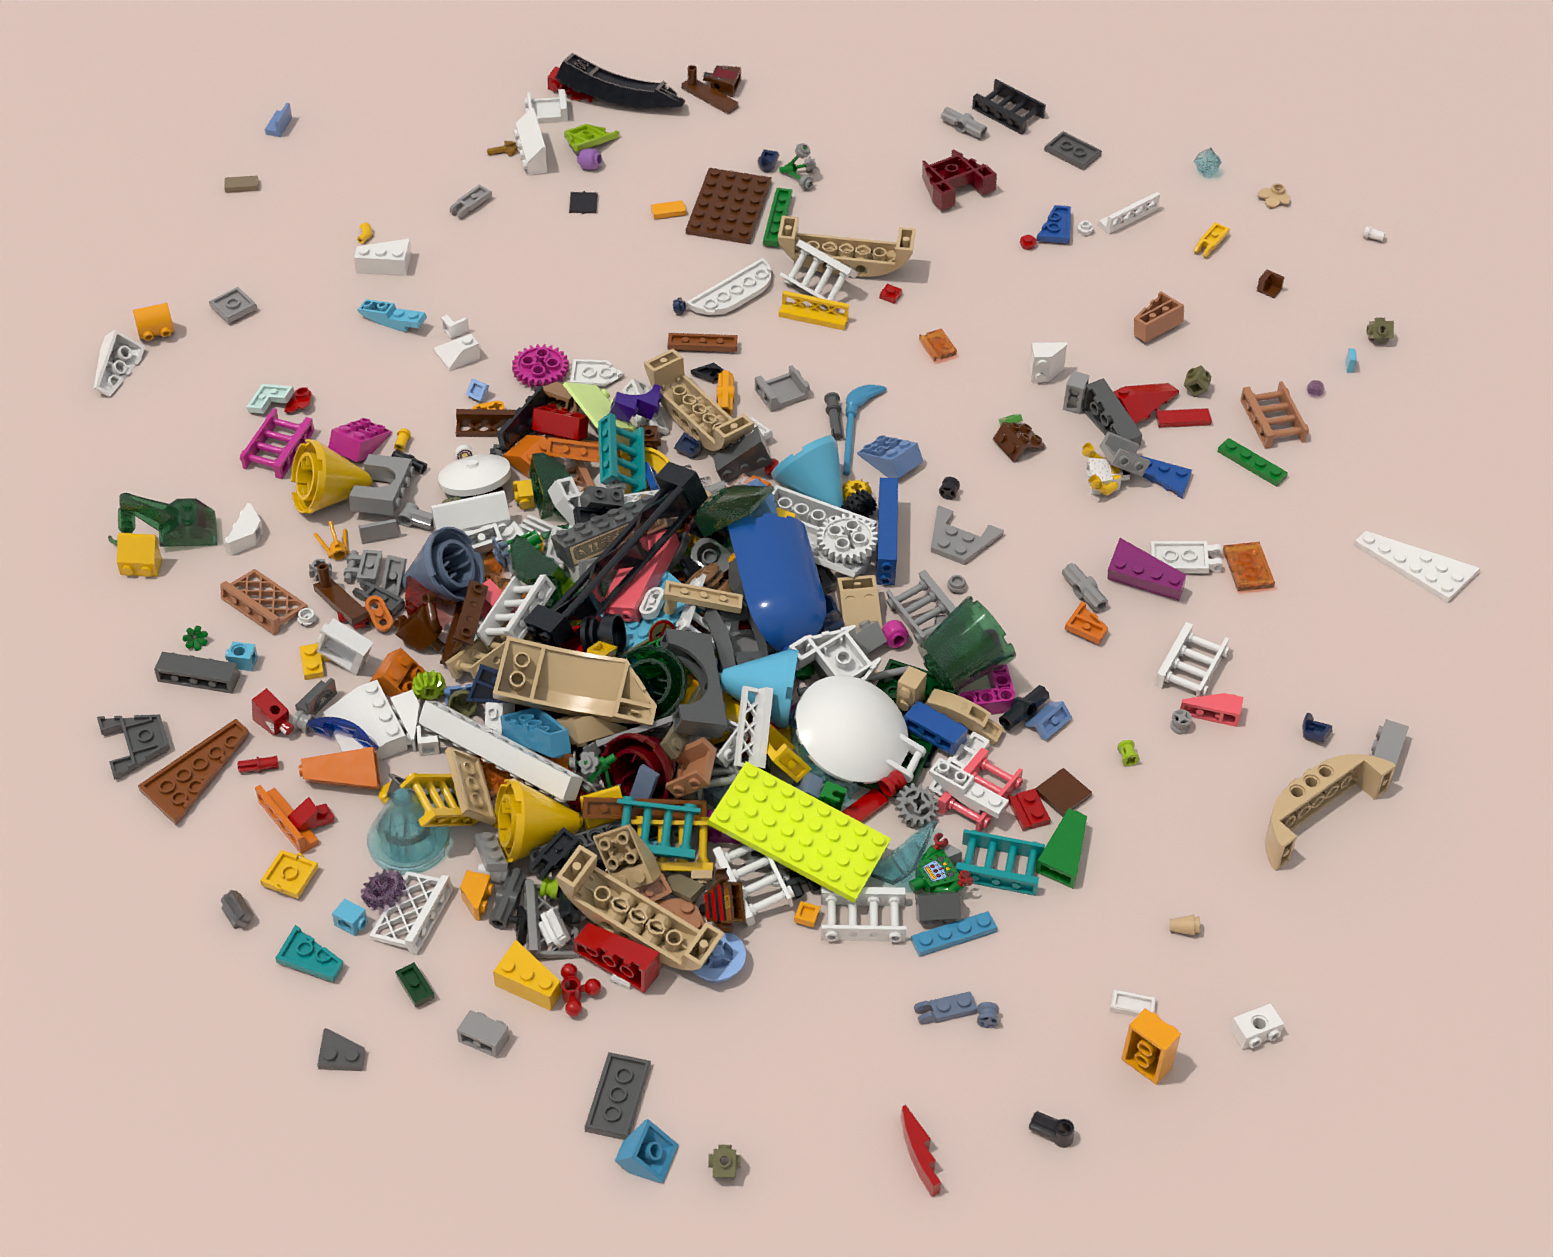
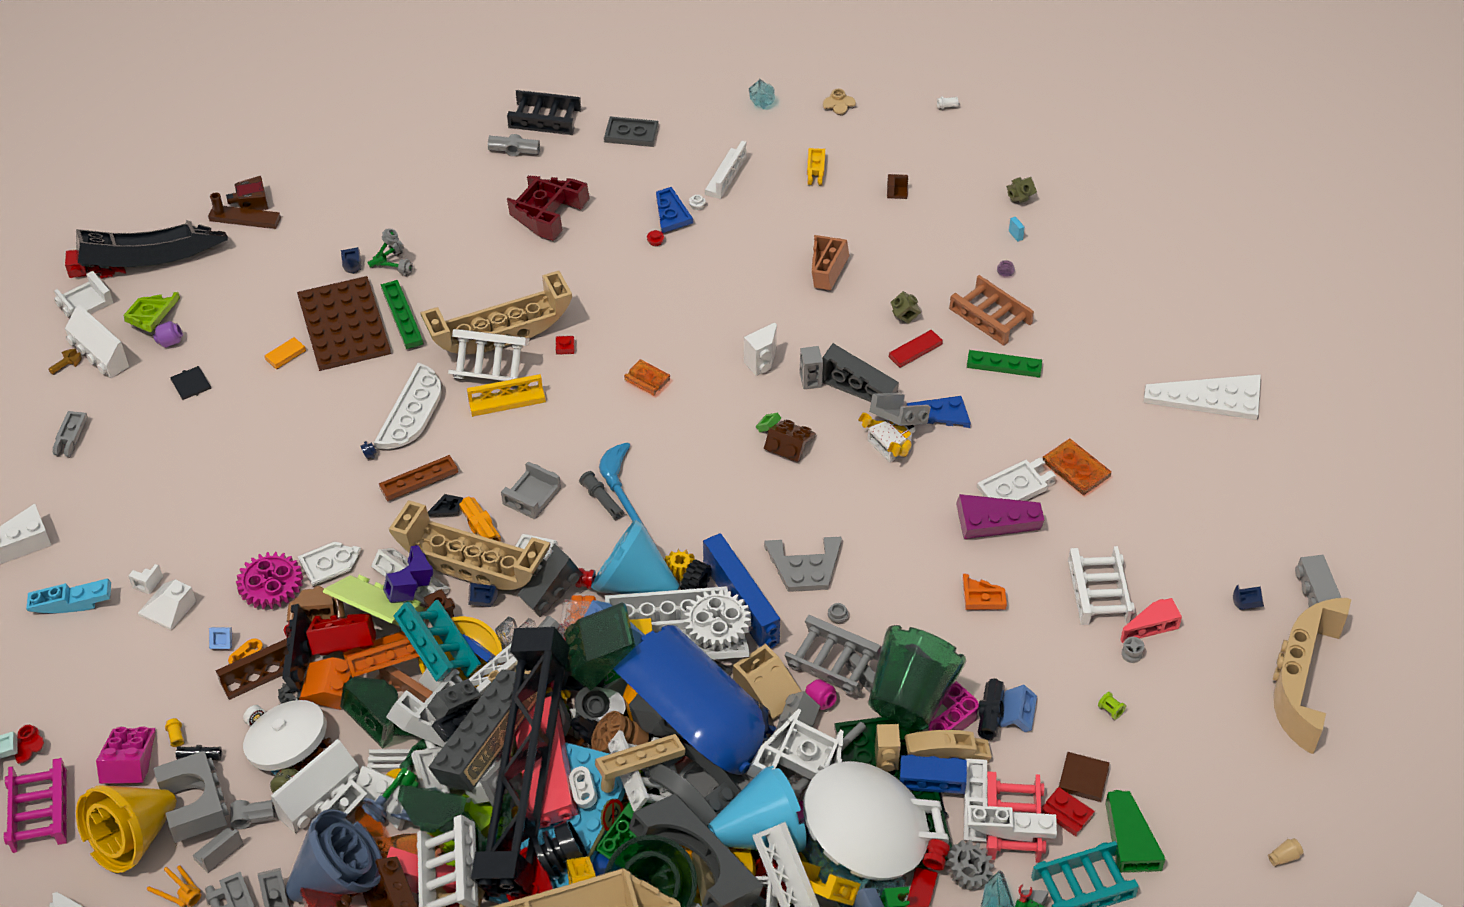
camera: 30 degrees left, 0 degrees up
(523, 494) = (349, 730): yellow brick -> none
(892, 455) = (685, 510): medium blue slope -> none
(949, 488) = (762, 518): black wheel -> none
(1085, 587) = (954, 558): light grey piece -> none
(1144, 399) = (873, 344): red wedge -> none

